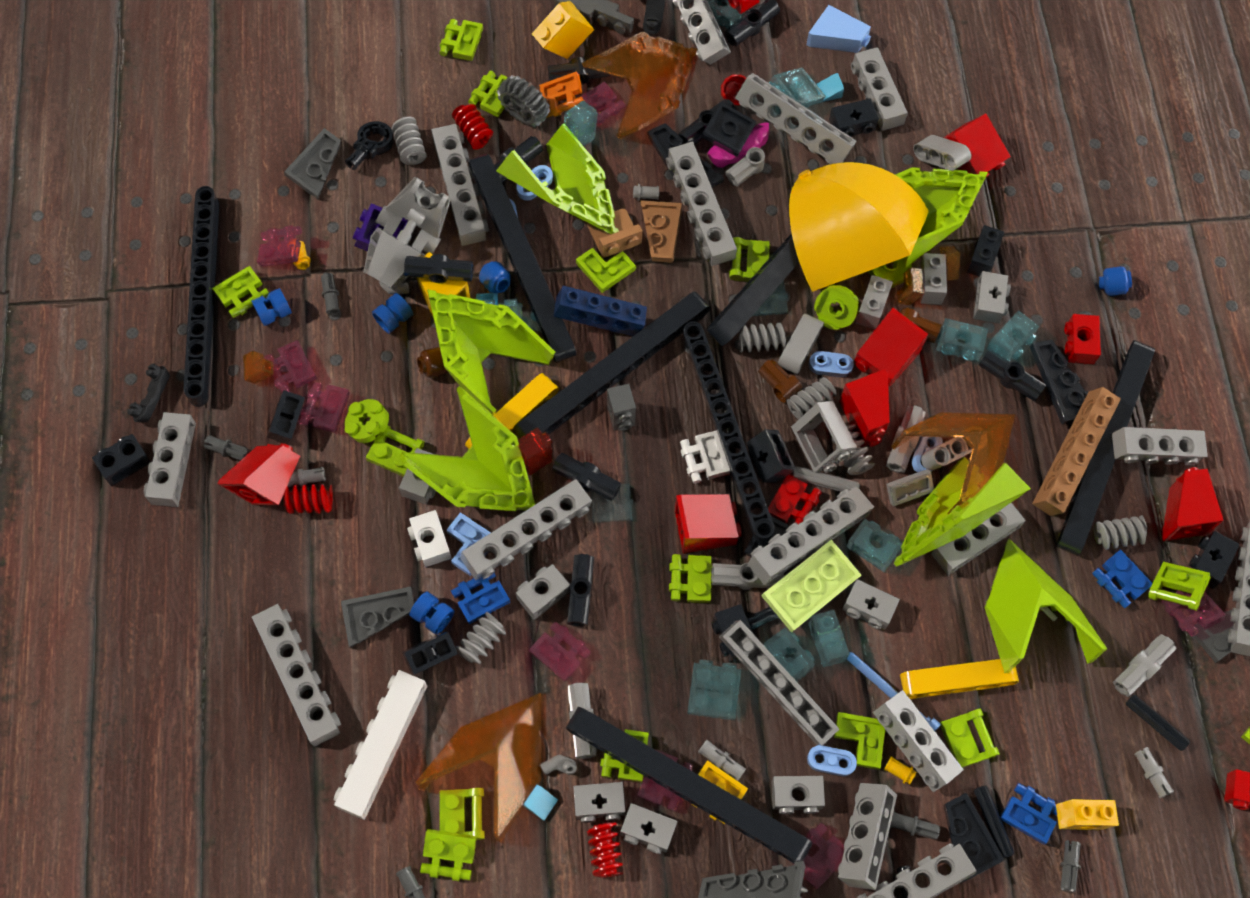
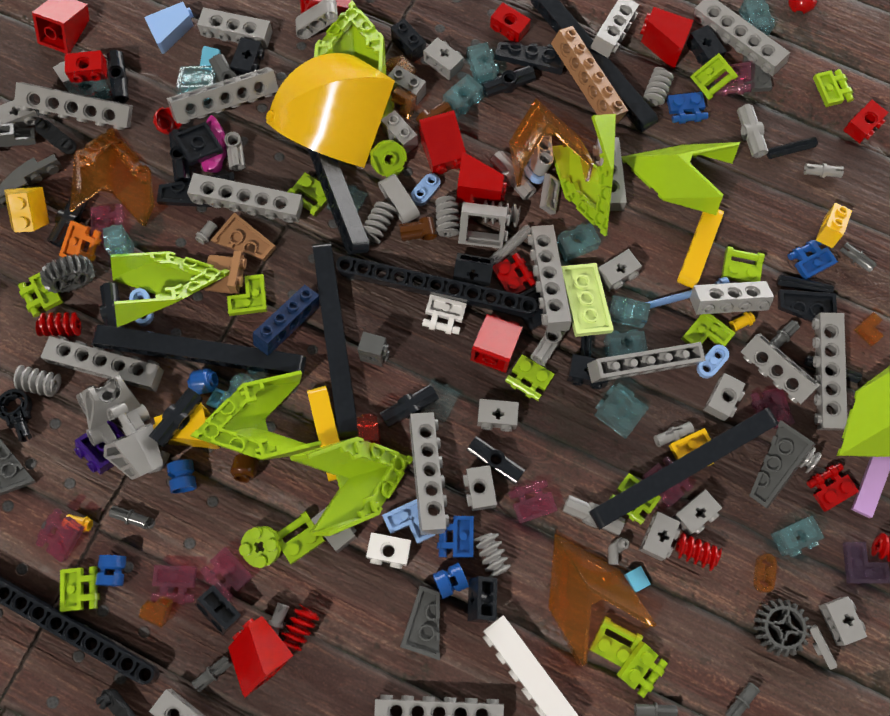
camera: 60 degrees left, 5 degrees up
(630, 554) = (507, 411): none -> light grey brick
(825, 101) = (221, 67): none -> dark grey piece

